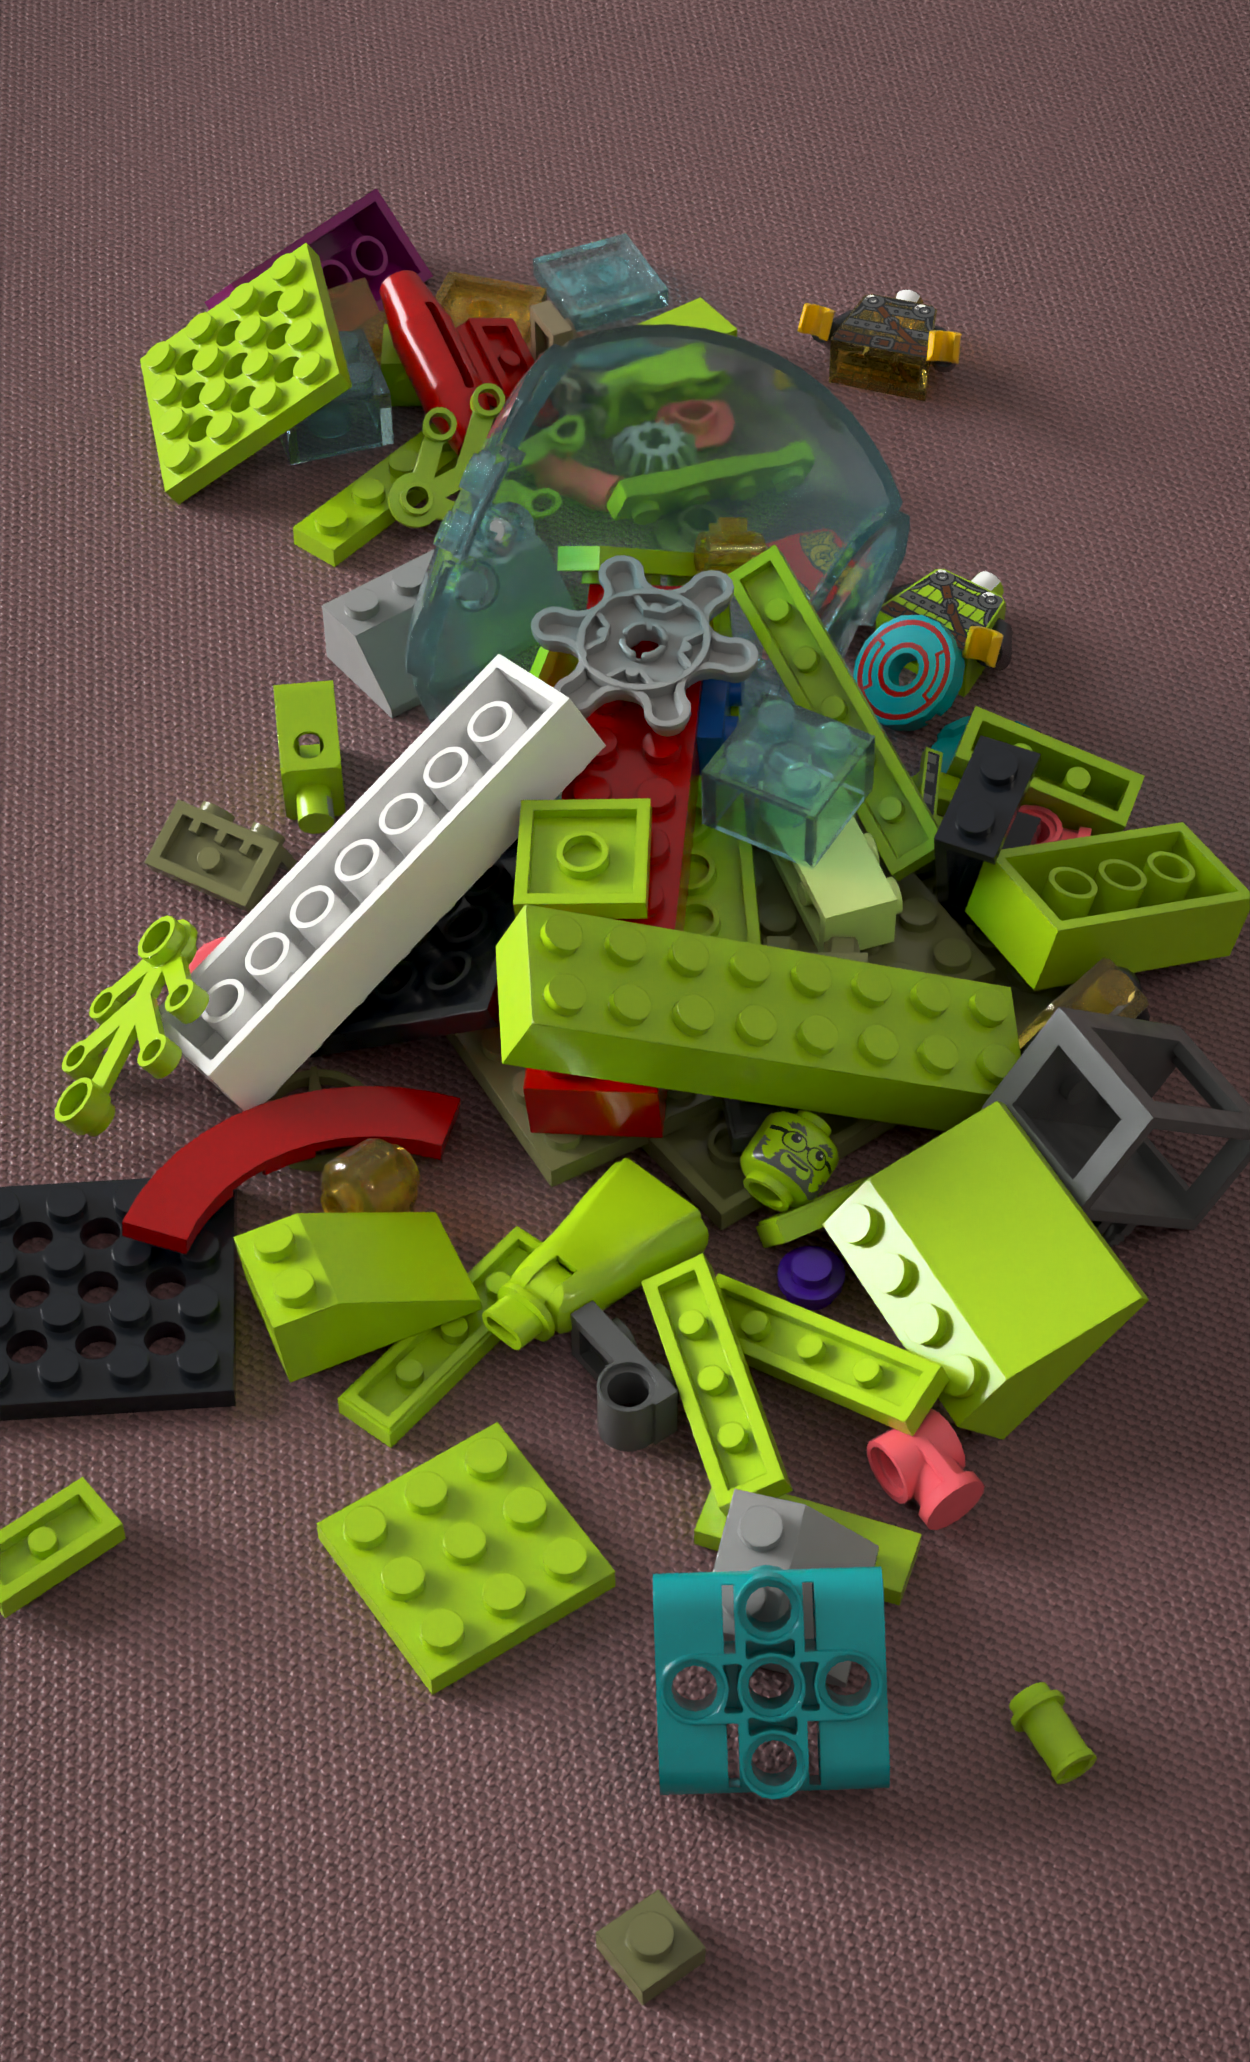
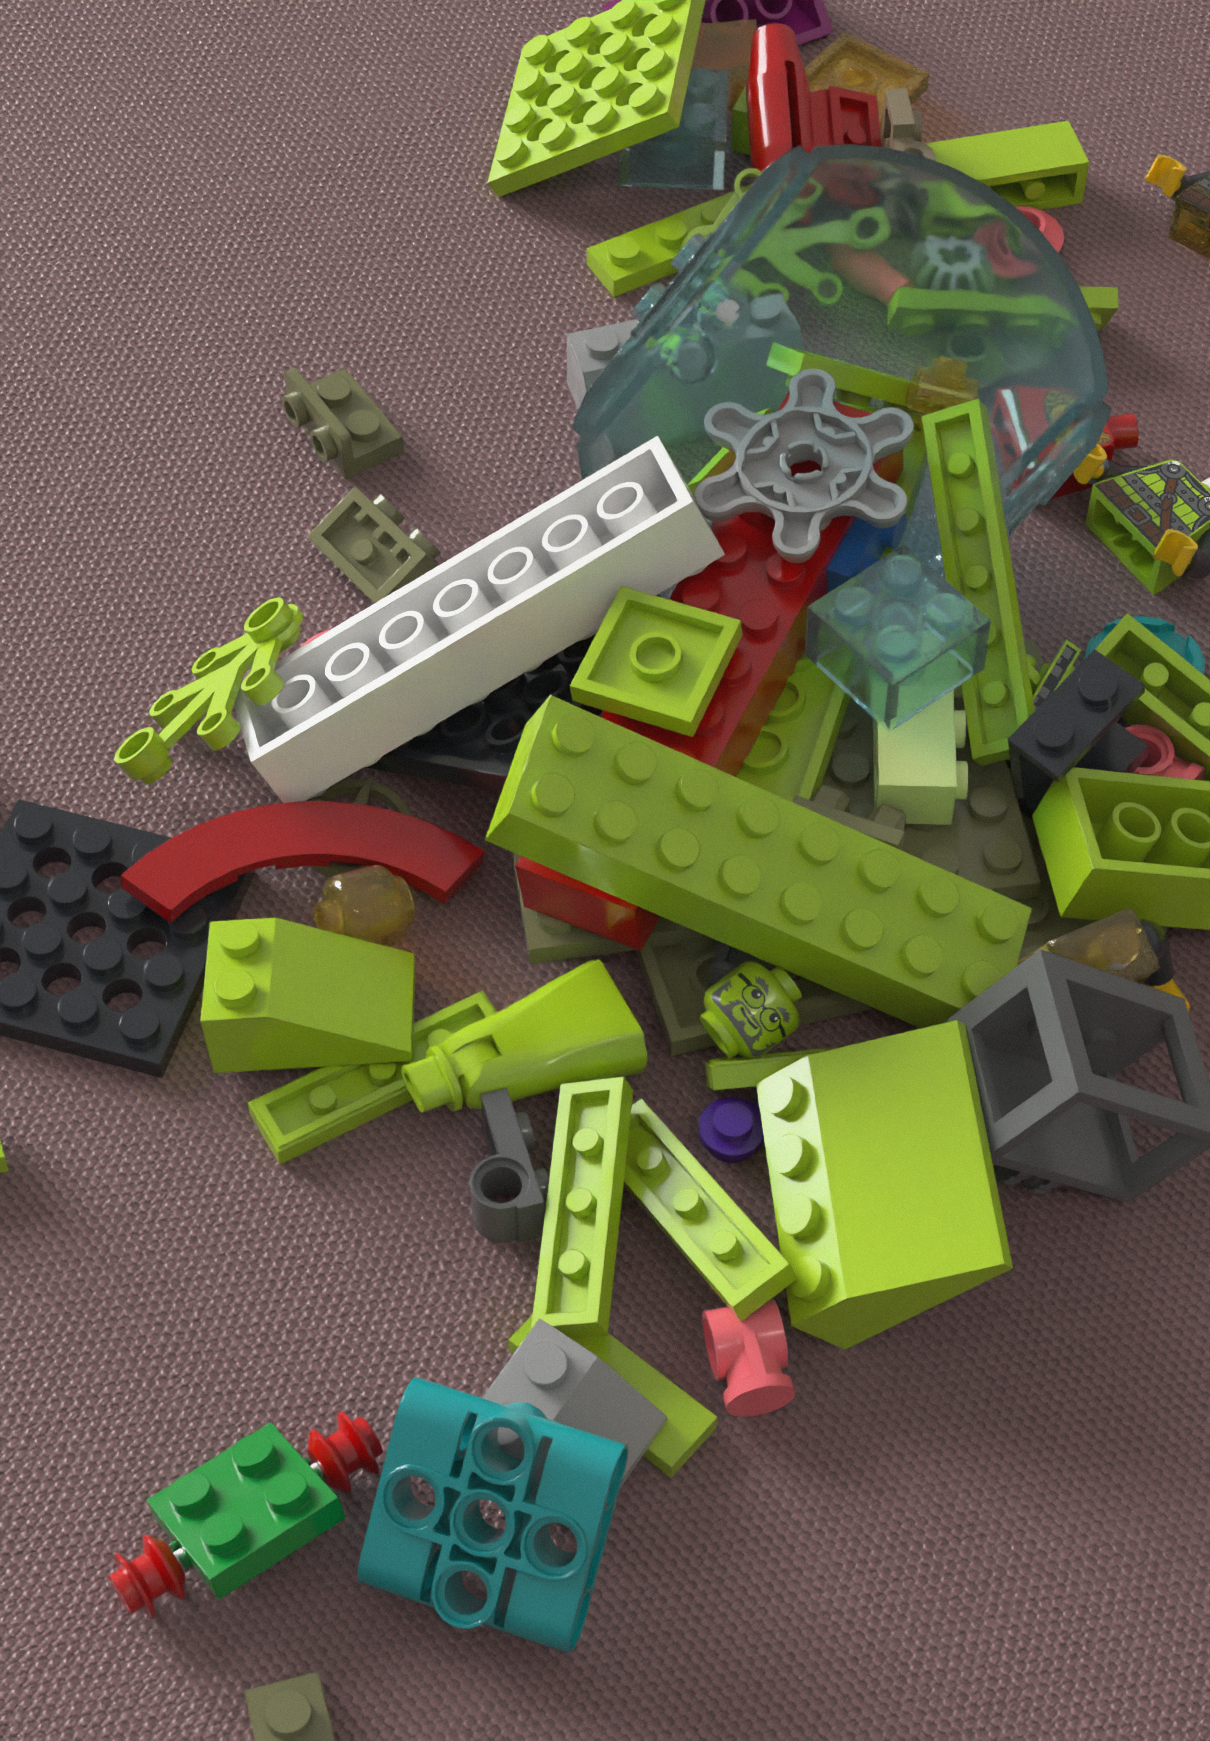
camera: 20 degrees right, 5 degrees up
(124, 748) = (341, 421): none -> olive bracket
(309, 772) = (490, 492): lime torso -> none
(465, 1557) = (296, 1292): lime plate -> none
(519, 1770) = (245, 1511): none -> green plate
(600, 282) = (986, 80): clear light blue plate -> none
(937, 679) = (1079, 537): teal tile -> none
(1041, 1716) = (750, 1654): lime pin -> none

